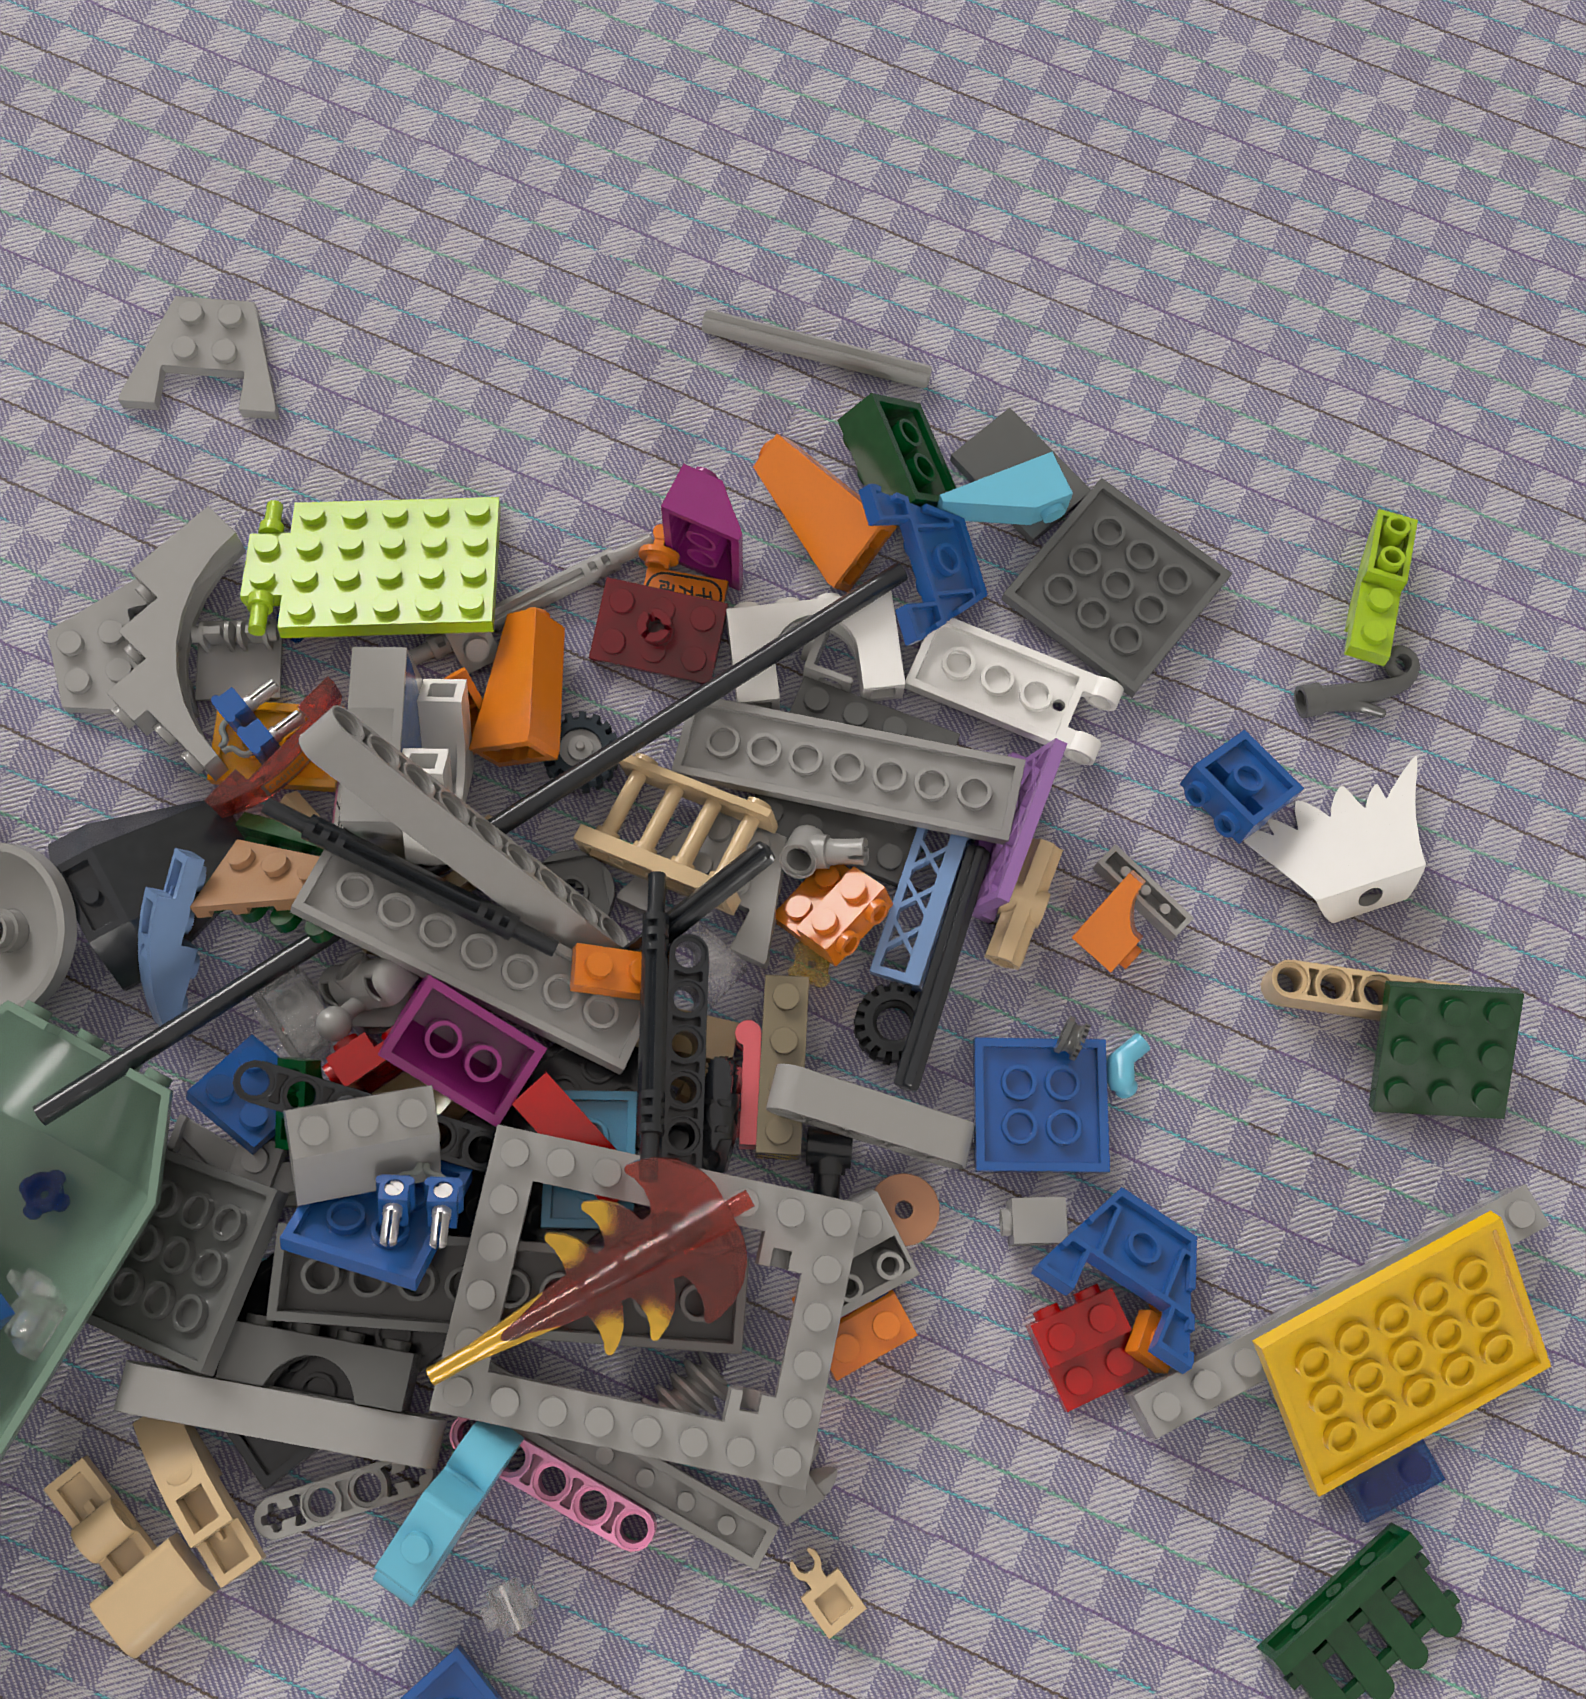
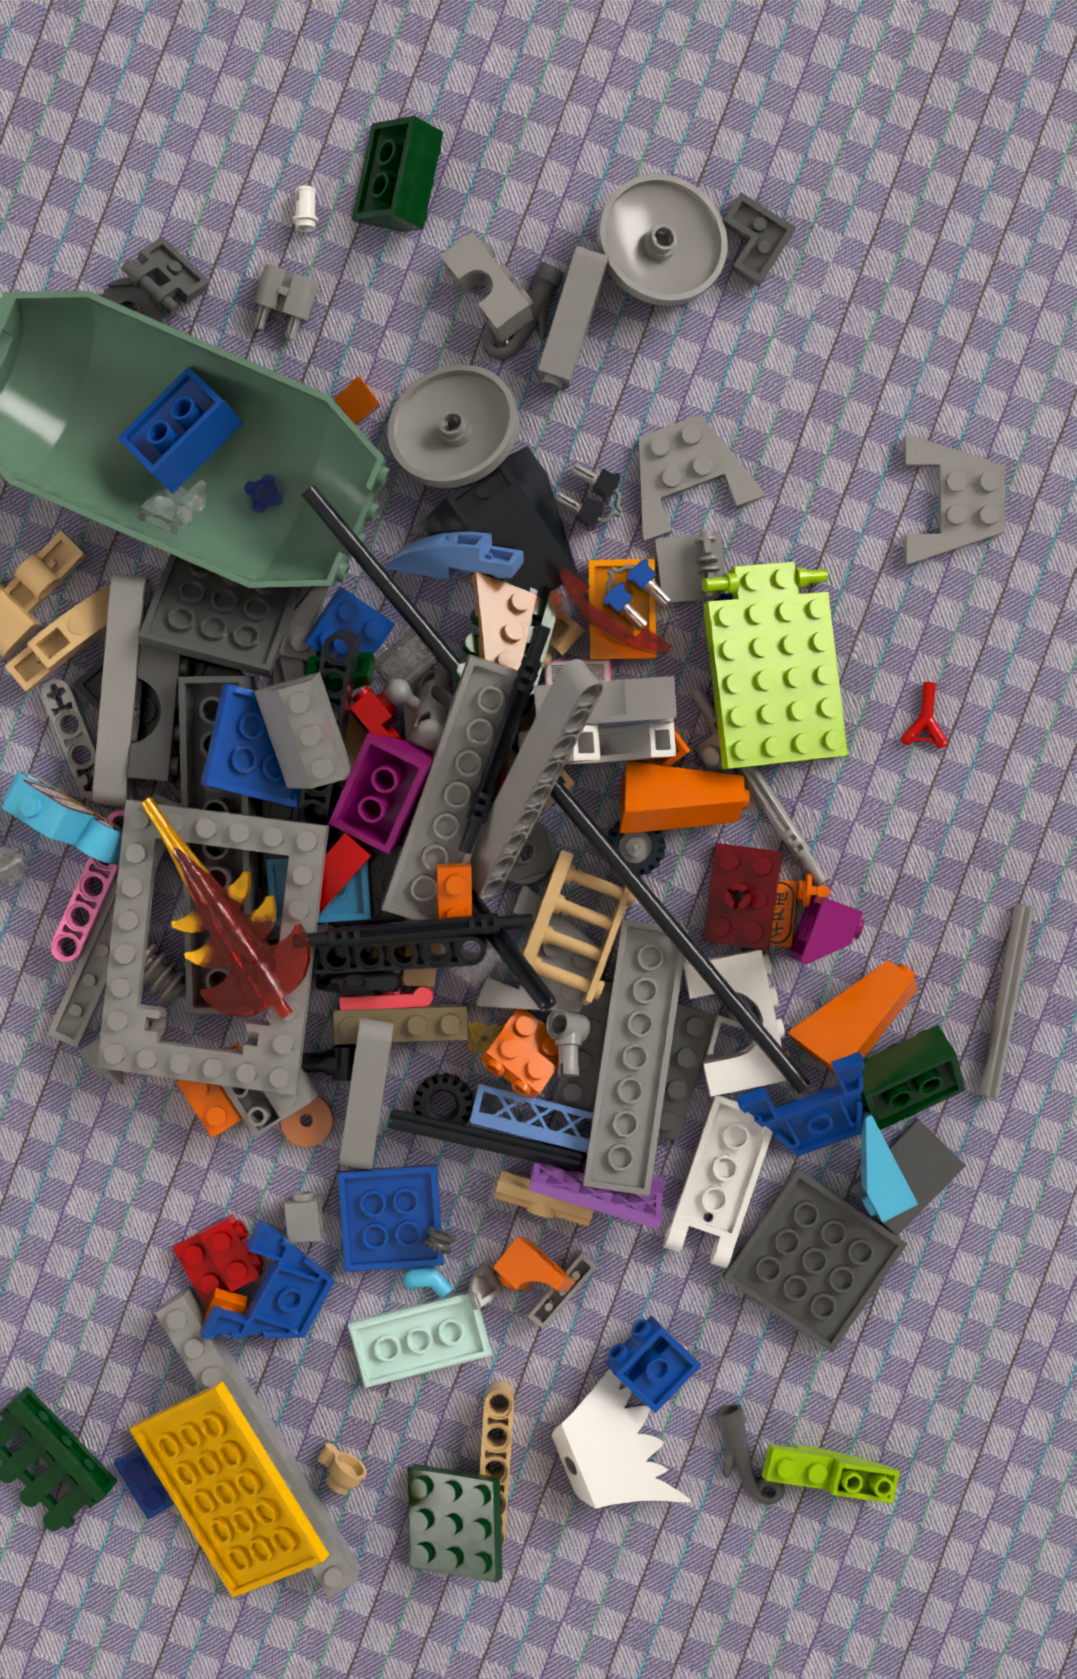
camera: 90 degrees right, 15 degrees up
(120, 755) = (589, 511): none -> piece
(175, 586) = (651, 513): light grey arch -> none
(397, 1199) = (268, 793): piece -> none
(469, 408) = (926, 720): none -> red piece
(830, 1597) = (35, 1086): tan plate -> none
(1136, 992) = (483, 1287): none -> light grey tile
(1202, 1083) = (418, 1339): none -> light aqua tile
(1375, 1196) = (344, 1469): none -> tan piece

